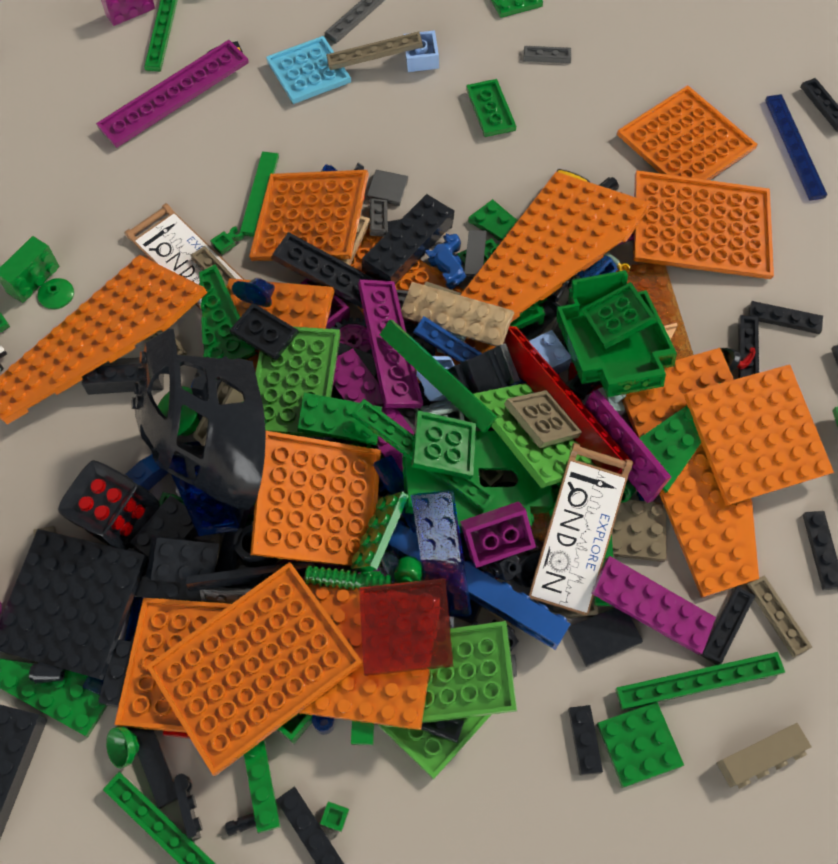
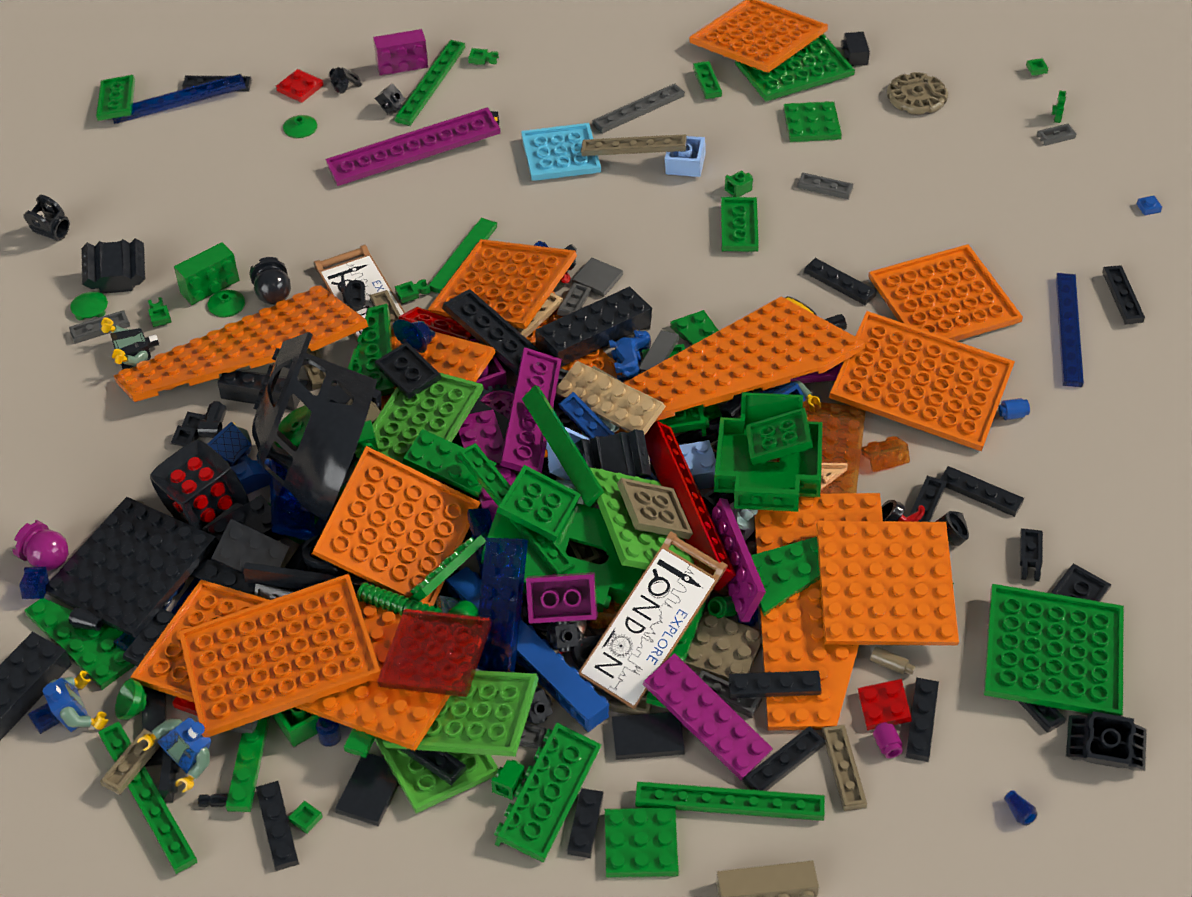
camera: 20 degrees right, 15 degrees down
(41, 51) = (299, 85): none -> red plate
(42, 789) = (43, 718): none -> clear blue plate
(57, 93) = (300, 126): none -> green dish
(61, 770) = (67, 704): none -> torso
(70, 438) = (188, 431): none -> black slope
(78, 37) = (339, 79): none -> black bracket
(90, 426) = (212, 422): none -> black piece
(92, 263) = (270, 280): none -> black tile
(119, 447) = (232, 444): none -> blue torso
(134, 48) = (390, 99): none -> black brick
(148, 813) = (129, 764): none -> dark tan tile
(176, 257) = (353, 293): none -> black bracket
(195, 784) = (184, 745): none -> torso
(269, 270) = (437, 323): none -> red plate
(381, 770) = (368, 790): none -> black tile
(478, 66) = (738, 183): none -> green brick
(504, 723) = (508, 779): none -> green brick
(542, 722) = (548, 792): none -> green bracket
(595, 144) = (840, 281): none -> black plate
(660, 573) = (745, 706): none -> dark grey tile
(698, 301) = (886, 453): none -> clear orange bracket
(698, 557) = (774, 684): none -> black plate
(776, 358) = (956, 527): none -> black piece
(779, 502) = (891, 661): none -> dark tan cylinder
(784, 233) = (1014, 408): none -> blue brick
(789, 546) = (884, 704): none -> red plate
(806, 580) = (888, 740): none -> magenta brick
(812, 16) = (1149, 205): none -> blue plate

